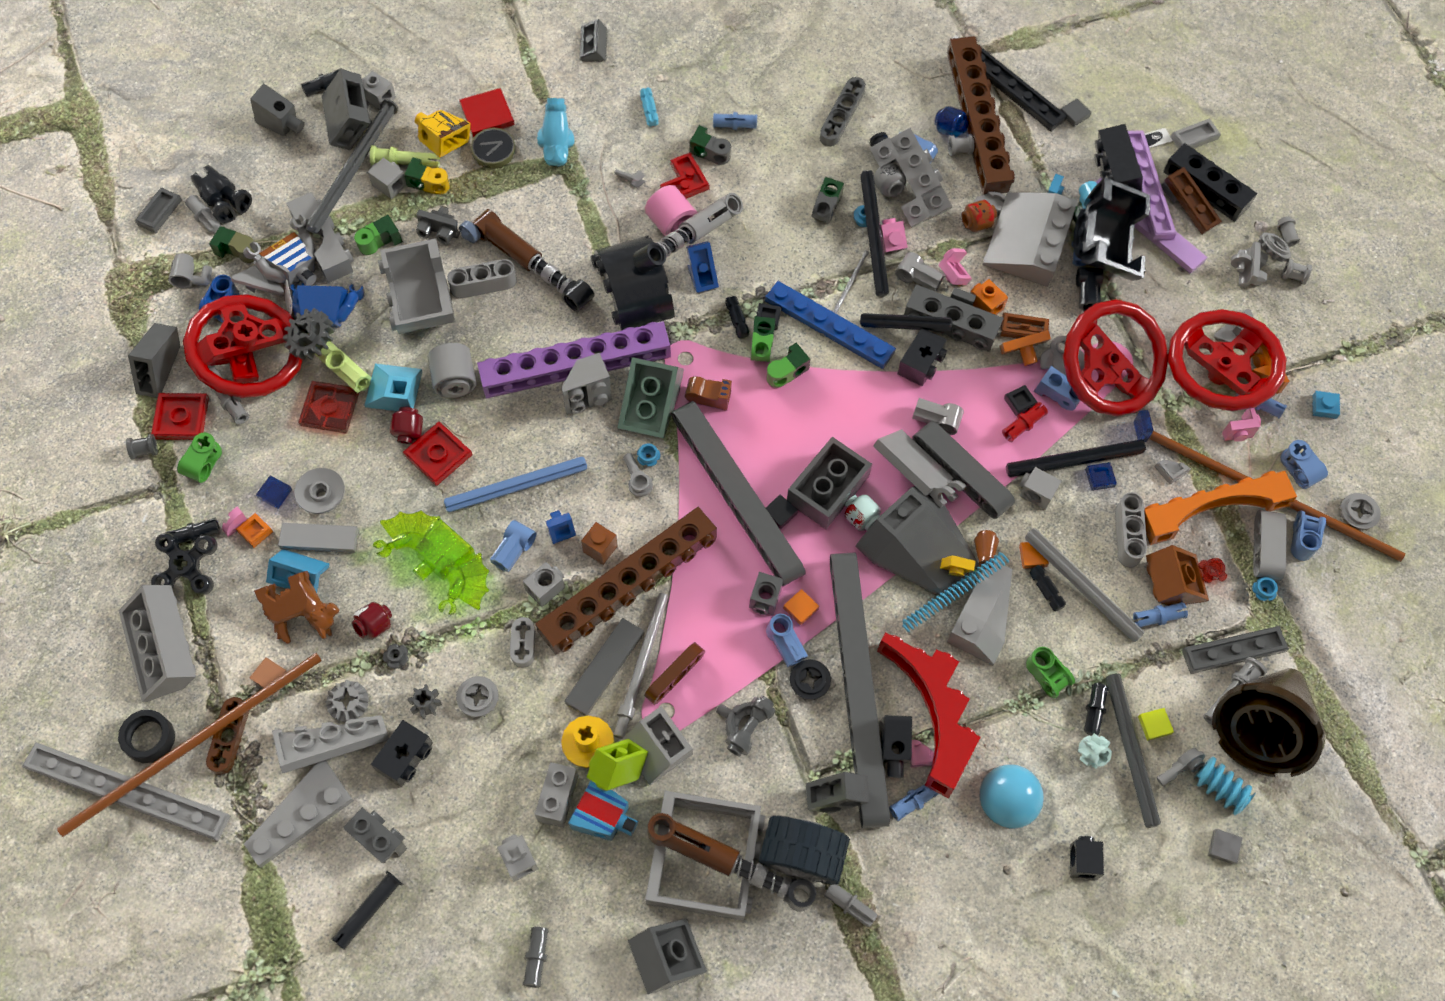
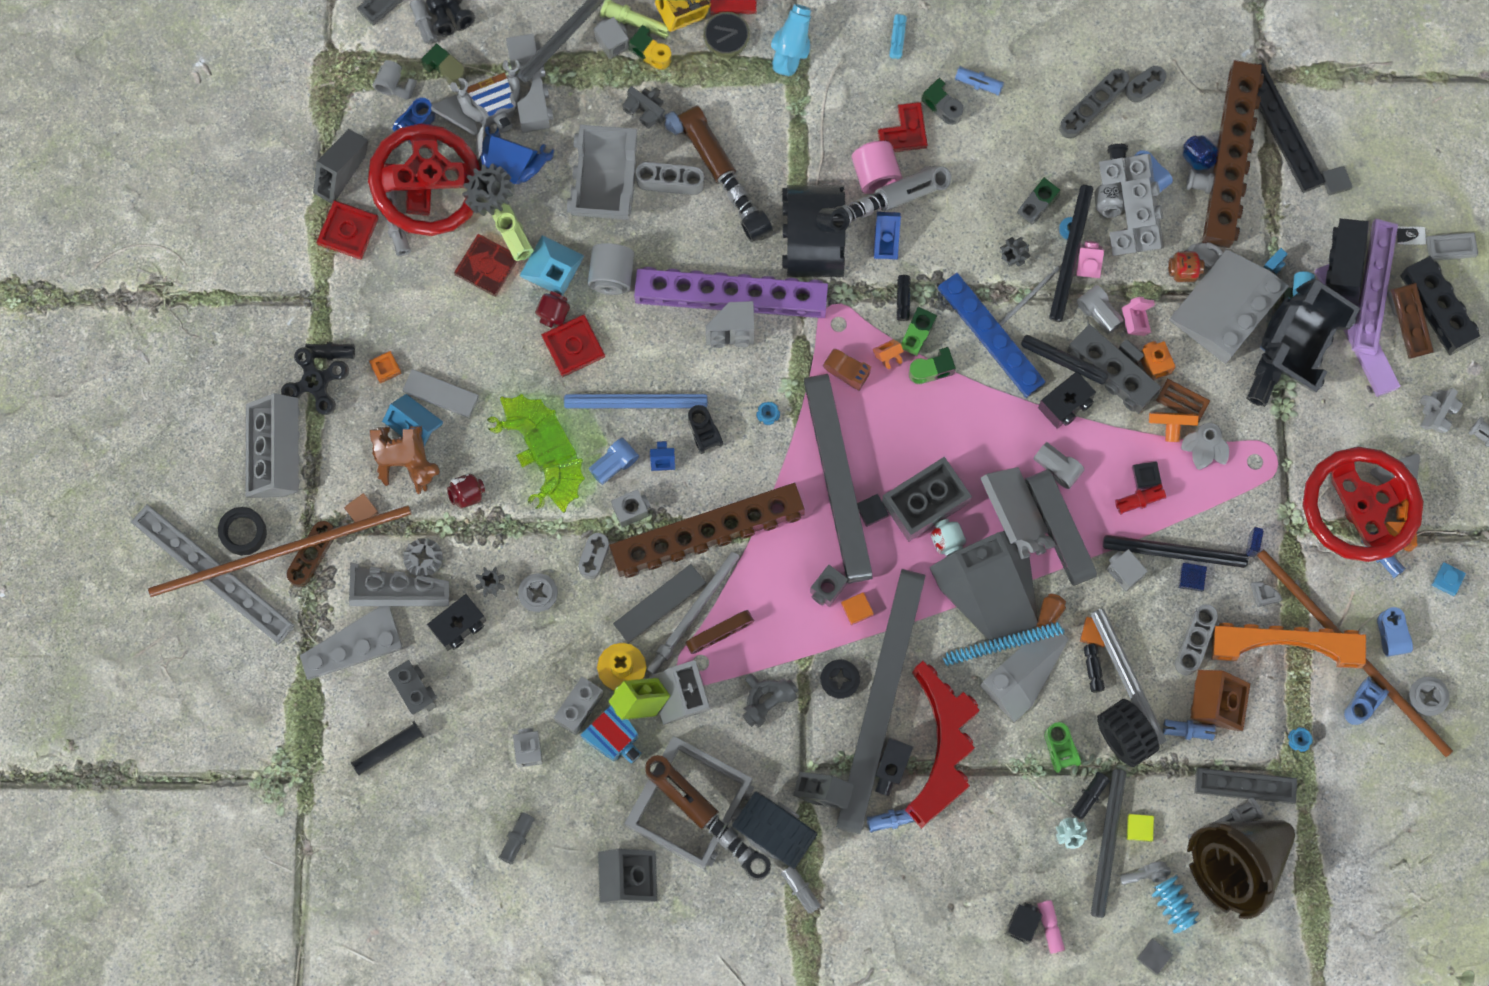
camera: 20 degrees right, 10 degrees up
(141, 446) = (306, 251): dark grey bush -> none
(198, 459) = (354, 282): bright green piece -> none
(235, 520) = (372, 352): bright pink tile -> none
(274, 492) = (412, 335): clear blue tile -> none
(319, 481) = (452, 338): light grey dish -> none
(377, 235) = (583, 97): leg -> none
(398, 662) = (481, 535): dark grey plate -> none
(594, 491) = (705, 433): none -> black piece
(599, 543) = (693, 486): dark orange brick -> none
(635, 179) = (857, 116): light grey hand -> none
(639, 483) = (750, 438): light grey plate -> none
(650, 397) = (789, 355): sand green slope -> none
(742, 364) = (887, 351): none -> orange tile
(769, 311) = (935, 304): black tile -> none
(786, 642) = (832, 638): medium blue piece -> none
(820, 251) = (1015, 251): none -> dark grey gear
(877, 82) = (1142, 80): none -> dark grey beam
(921, 755) = (913, 780): bright pink tile -> none
(957, 565) = (1014, 621): yellow plate -> none
(1011, 796) = (981, 846): medium azure piece -> none
(1056, 387) = (1188, 478): medium blue leg -> none
(1109, 634) = (1128, 733): none -> black tyre
(1111, 362) = (1248, 468): red piece -> none
(1116, 856) = (1052, 931): none -> bright pink piece
(1216, 564) = (1252, 707): clear red plate -> none
(1244, 428) = (1348, 578): bright pink bracket -> none
(1269, 545) = (1323, 699): light grey beam -> none
(1275, 246) = (1478, 403): light grey gear -> none

